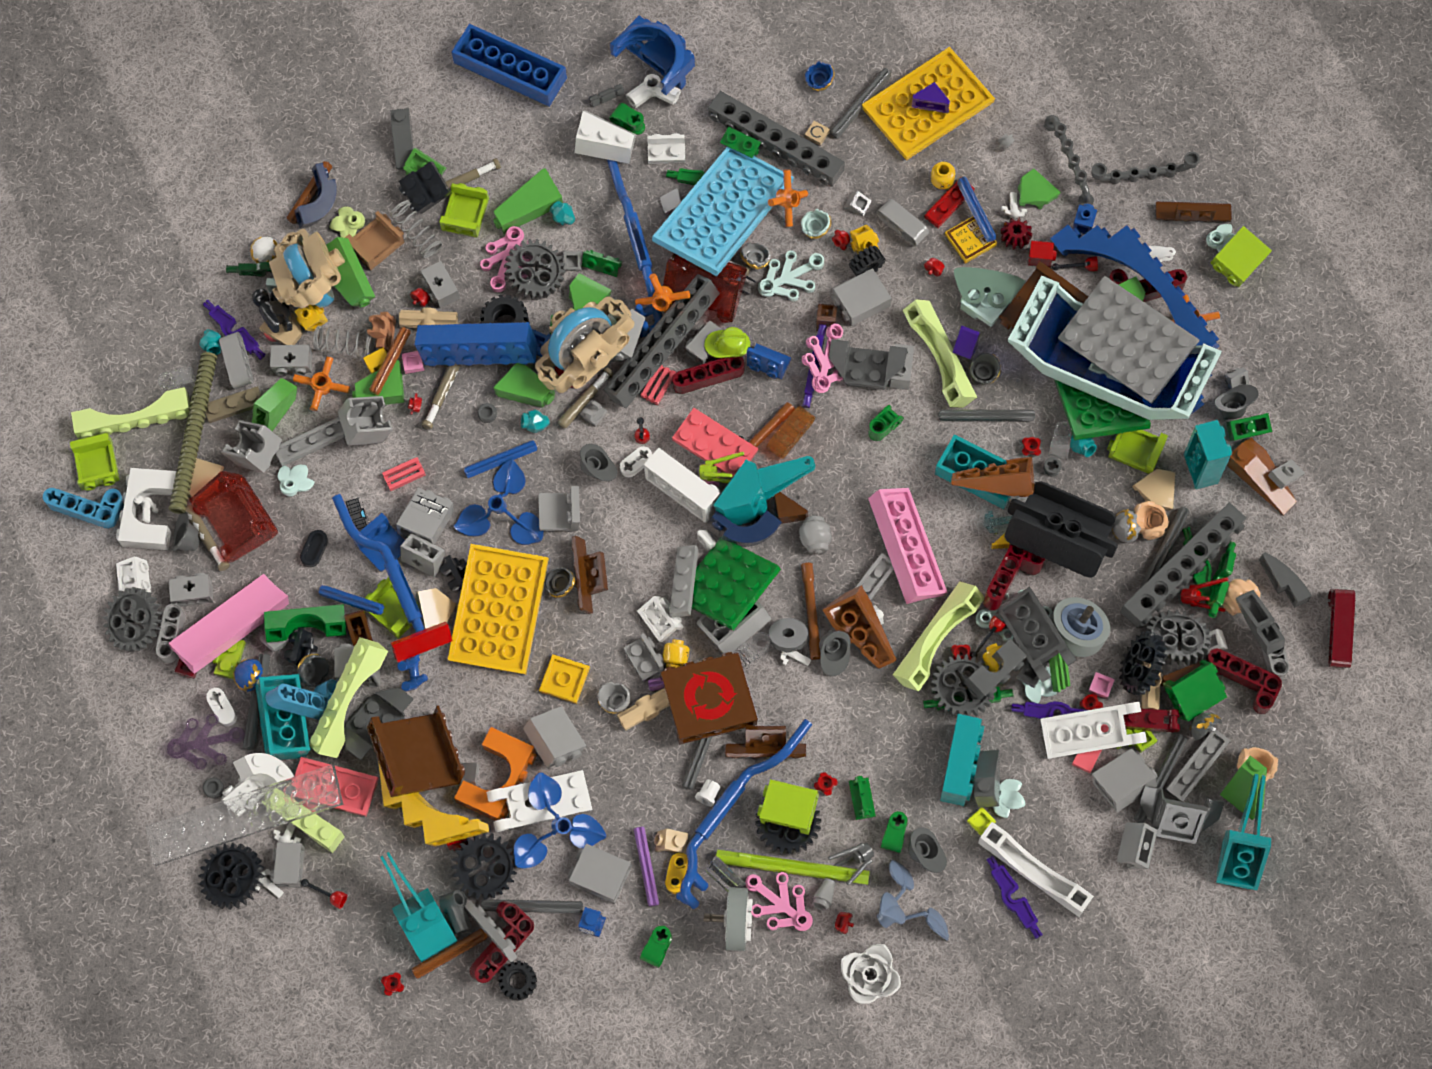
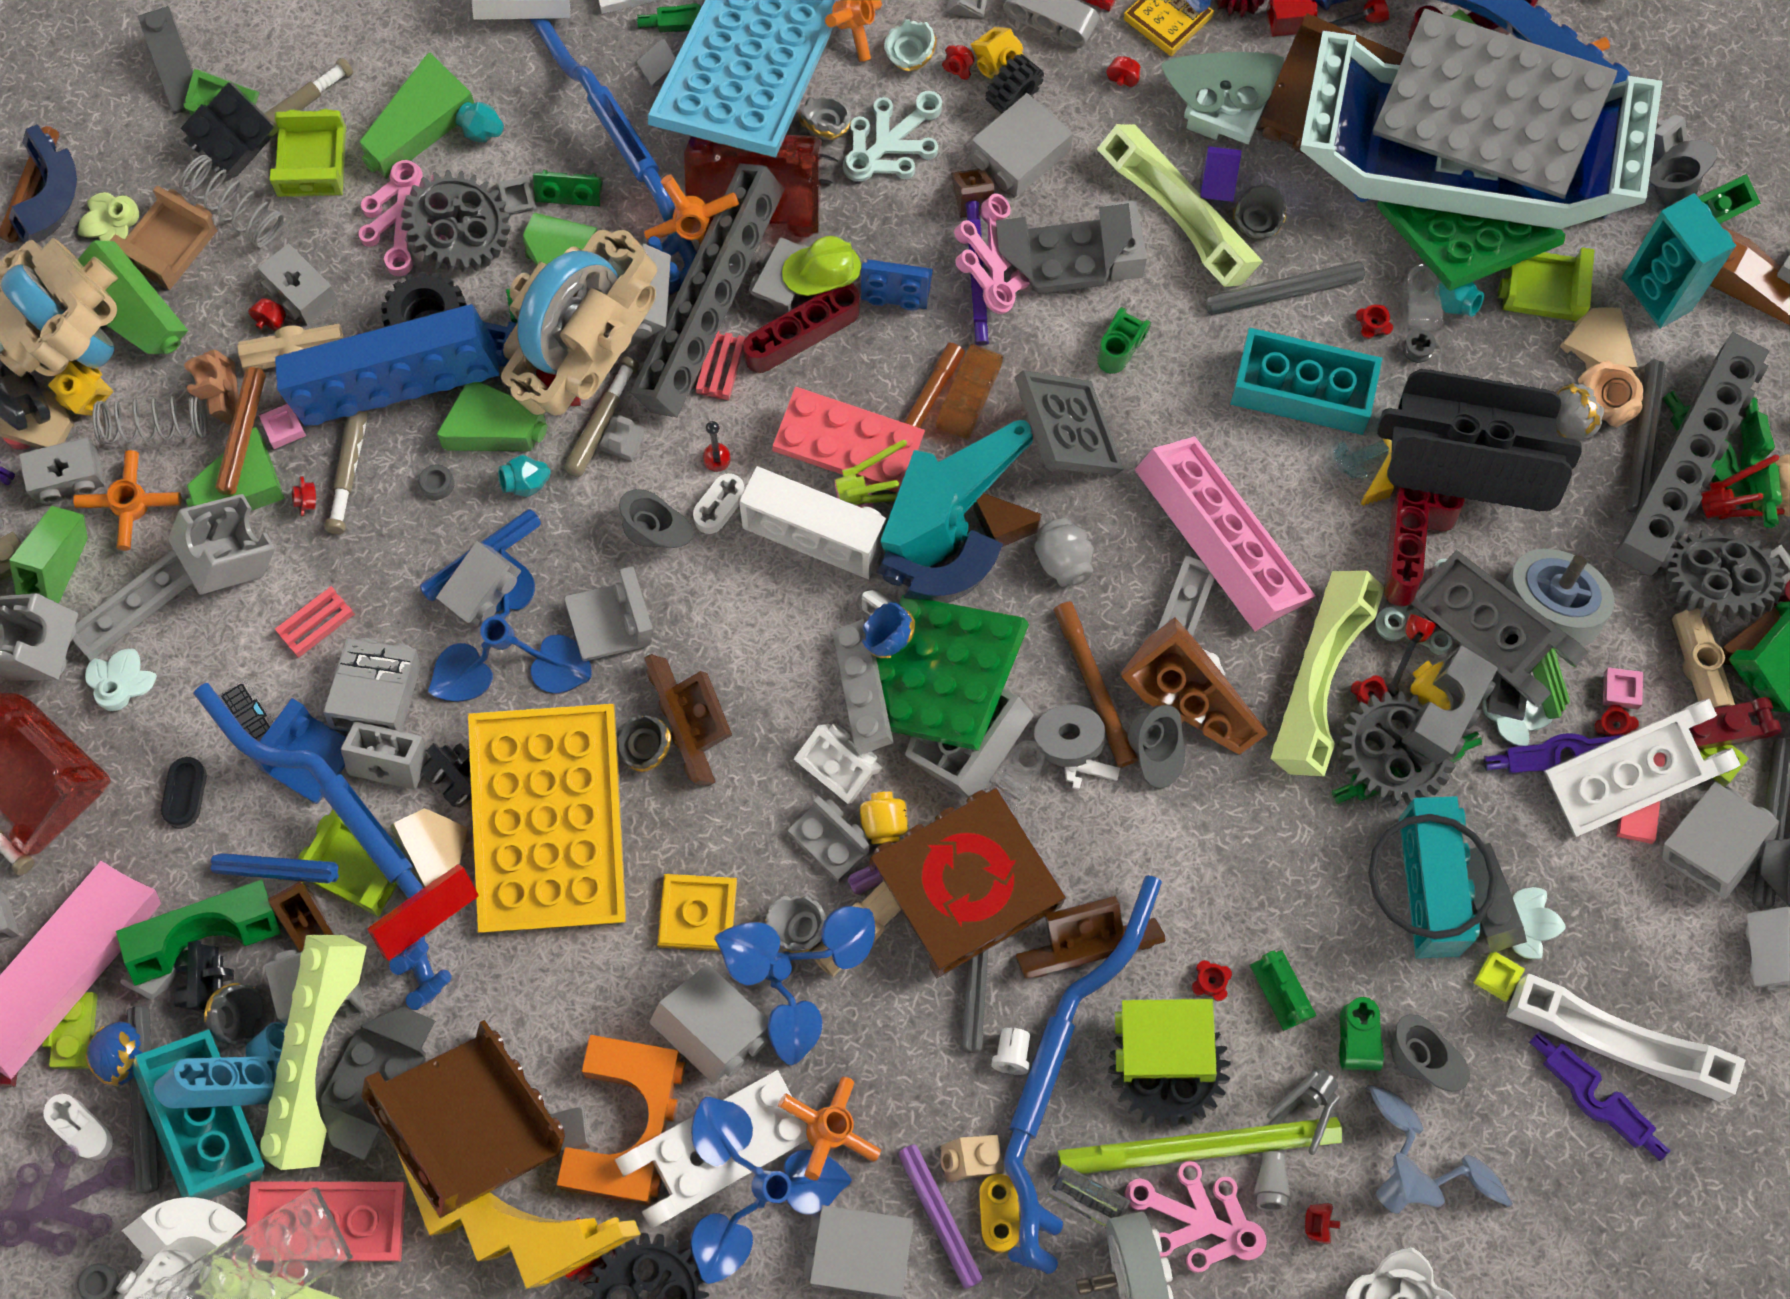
camera: 20 degrees left, 0 degrees up
(374, 360) = (213, 437): yellow brick -> none
(495, 475) = (479, 584): none -> light grey brick
(583, 706) = (753, 955): none -> blue plant
(595, 809) = (821, 1136): none -> orange bar
(705, 554) = (888, 630): none -> blue hair
(838, 464) = (1068, 423): none -> dark grey plate
(950, 787) = (1400, 922): none -> black piece
(1010, 479) = (1372, 375): dark orange wedge -> none
(1147, 648) = (1686, 658): black gear -> none

